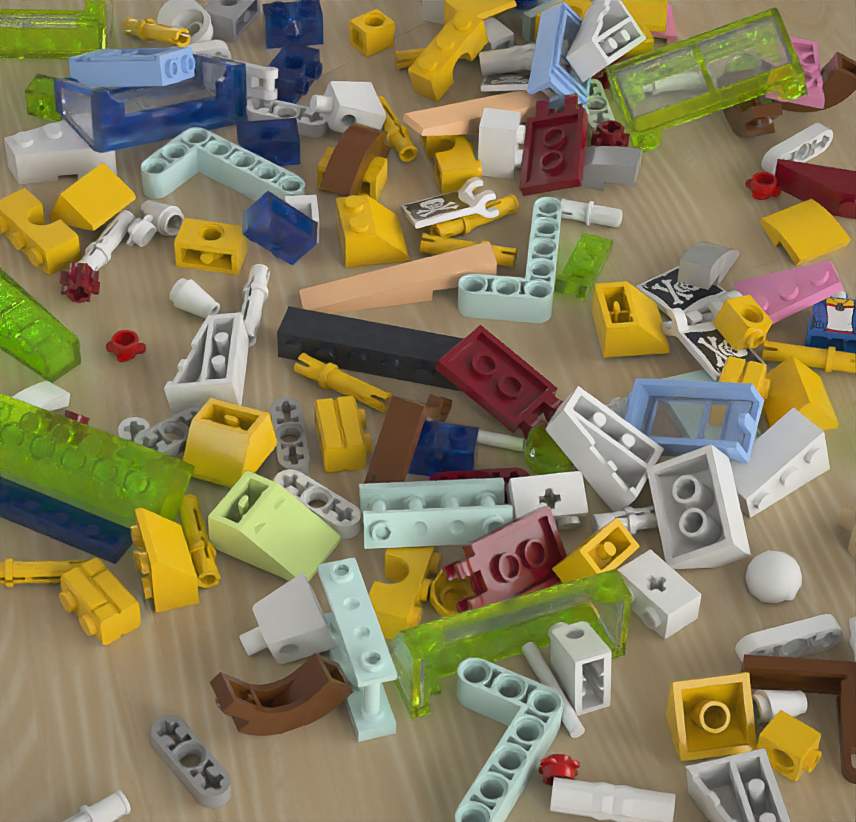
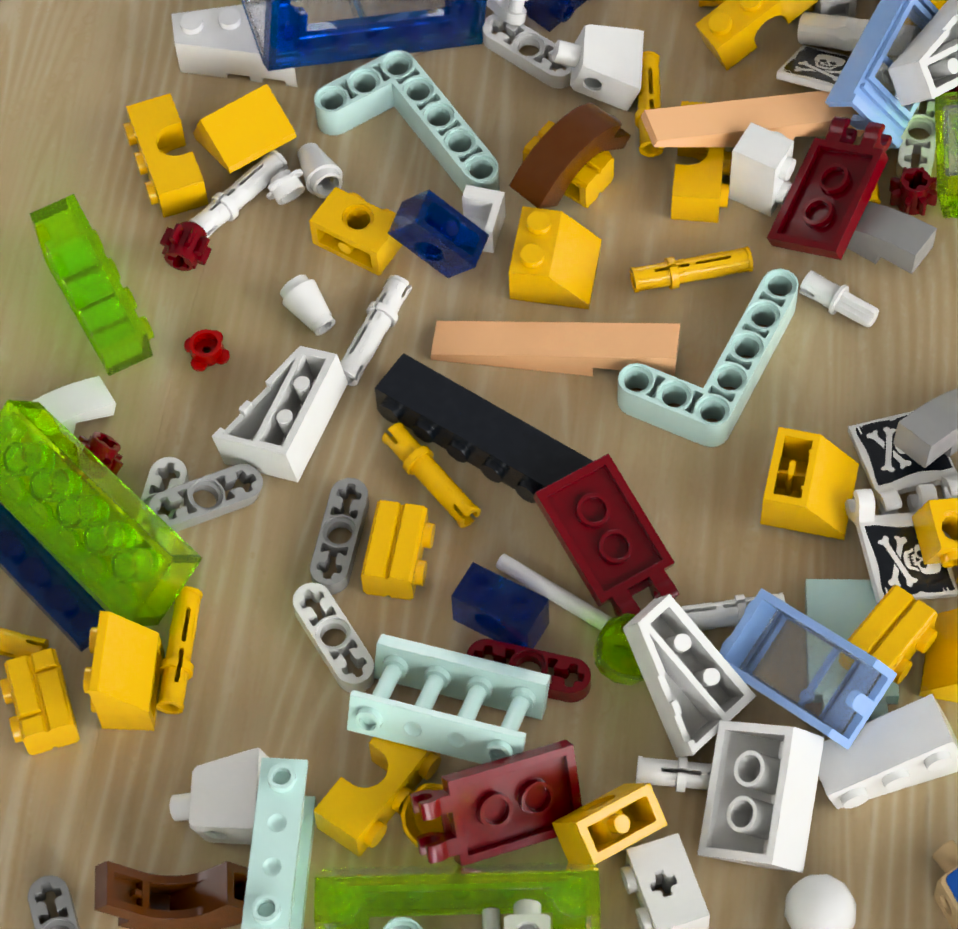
camera: 25 degrees right, 15 degrees up
(228, 441) = (257, 532): yellow slope -> none
(270, 529) = (262, 666): yellowish green slope -> none
(271, 139) = (487, 89): clear blue brick -> none
(400, 436) = (454, 577): reddish brown hinge -> none
(438, 245) = (654, 312): yellow pin -> none
(450, 205) = (664, 247): white flag -> none
(561, 489) = (617, 714): white brick -> none
(584, 266) = (796, 379): clear neon green plate -> none

